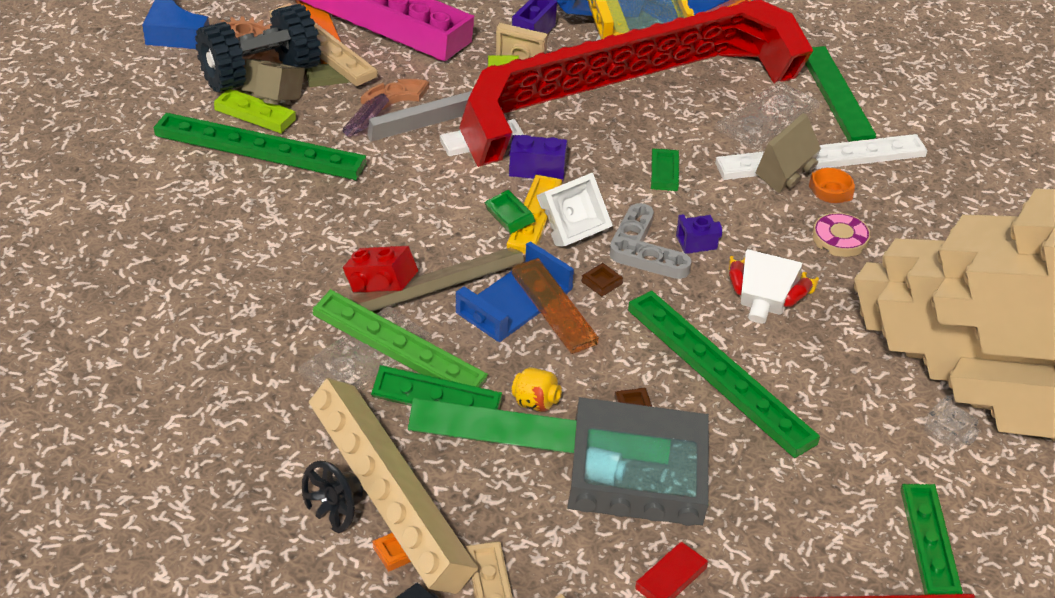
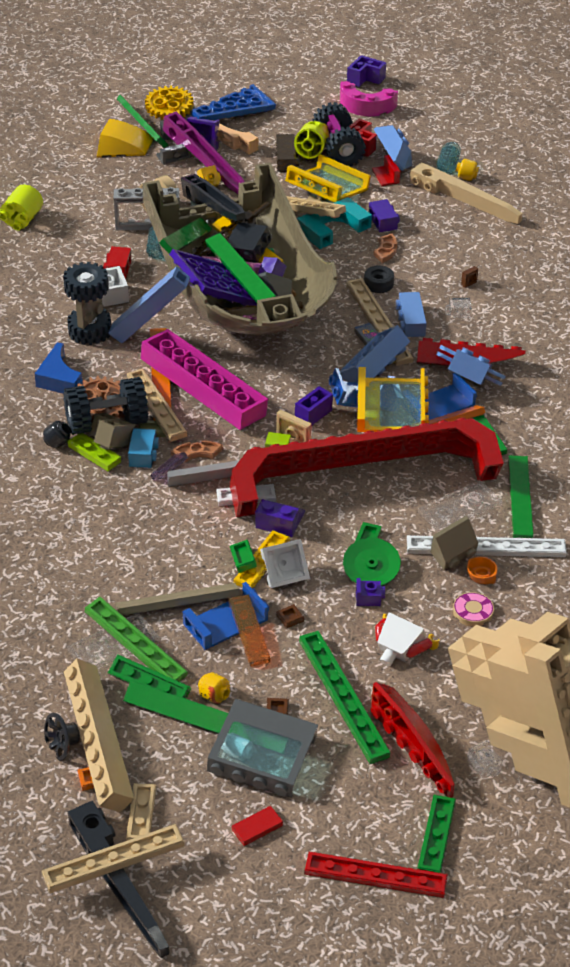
camera: 15 degrees right, 0 degrees up
(196, 94) = (57, 434): none -> black head
(260, 146) = (90, 480): green plate -> none
(322, 97) = (142, 448): none -> dark azure brick
(380, 269) = (139, 586): red brick -> none
(634, 244) = (323, 595): light grey beam -> none
(686, 191) = (372, 561): none -> green piece
(844, 411) = (412, 735): none -> red wedge

